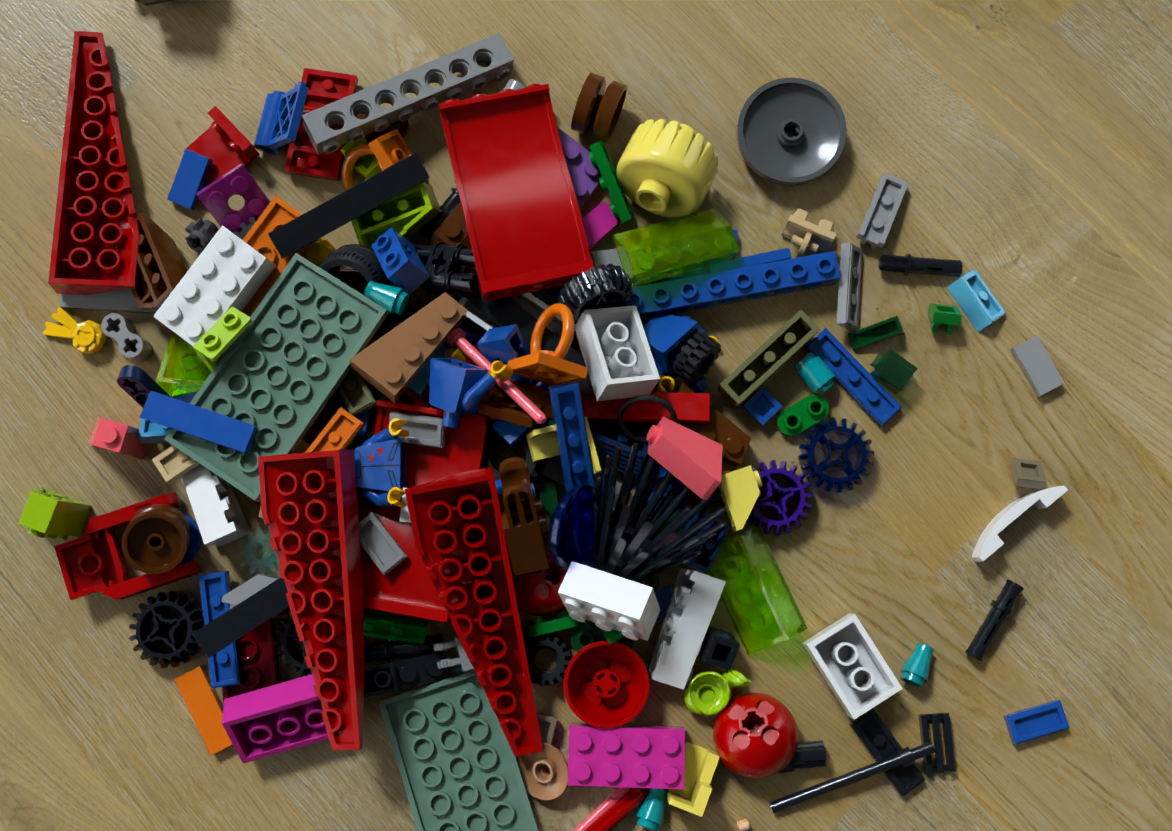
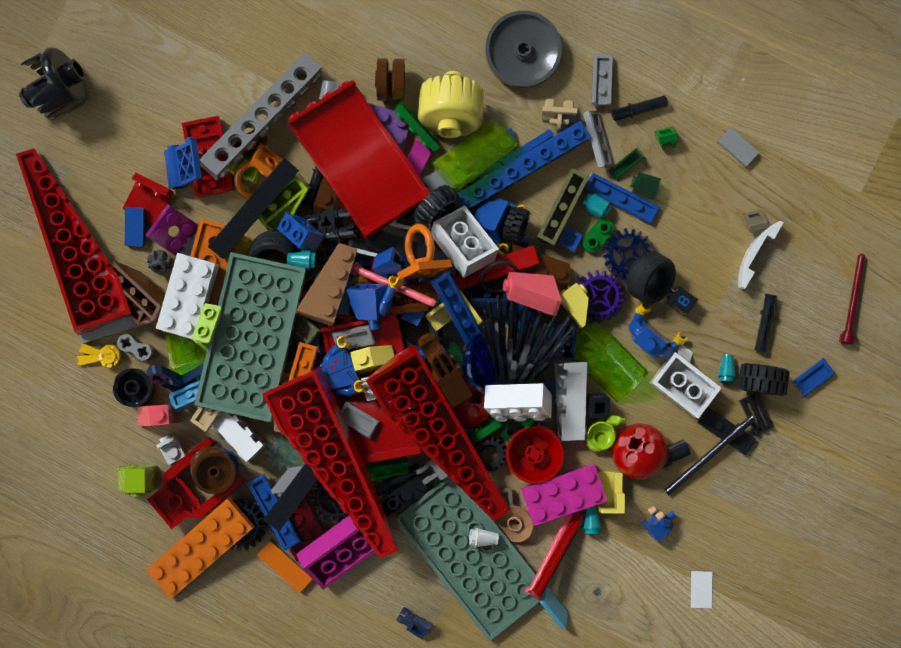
camera: 30 degrees left, 5 degrees up
(94, 377) = (123, 386): none -> black brick
(99, 640) = (200, 548): none -> orange plate
(118, 490) = (171, 449): none -> white bracket
(199, 422) = (213, 385): blue tile -> none
(428, 464) = (371, 358): none -> light yellow slope
(490, 774) = (481, 537): none -> white cone
(826, 583) = (651, 339): none -> blue torso
(845, 485) = (651, 277): none -> black tyre
(867, 620) = (685, 353): none -> white sticker
(887, 545) = (681, 300): none -> black brick
(966, 698) = (763, 379): none -> black tyre
(976, 300) = (684, 117): medium azure slope -> none
(1105, 680) = (847, 336): none -> dark red piece

